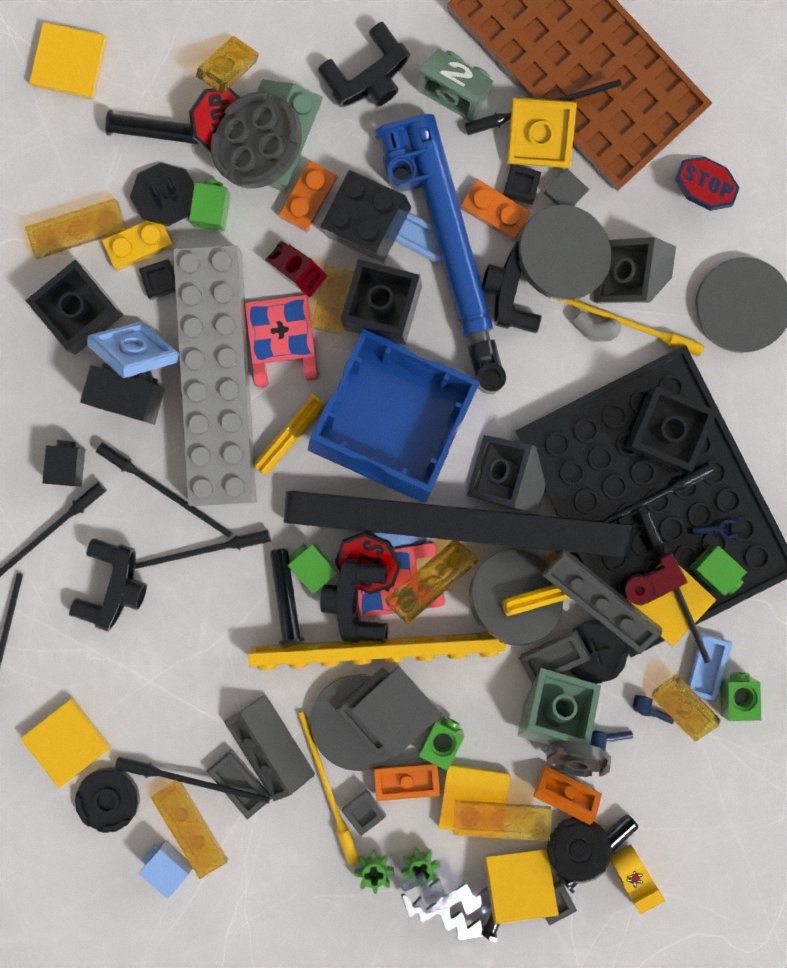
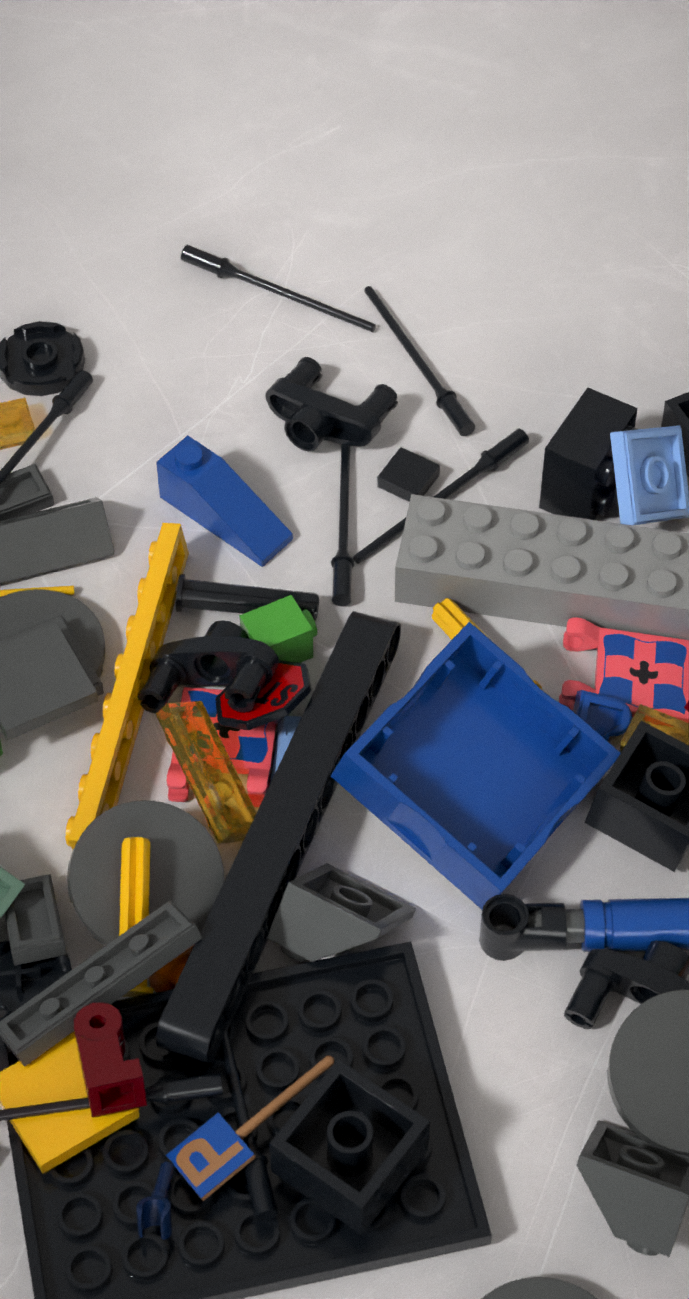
camera: 105 degrees right, 35 degrees down
(64, 464) = (507, 390): black brick -> none
(65, 743) = (133, 330): yellow tile -> none
(152, 516) = (408, 474): none -> black tile
(211, 633) = (220, 501): none -> blue slope
(326, 351) = (603, 713): none -> blue tile
(597, 331) = (547, 1110): light grey arm -> none
(669, 338) = (508, 1224): yellow piece -> none
(682, 507) = (218, 1152): none -> piece
(718, 570) = (88, 1177): bright green brick -> none

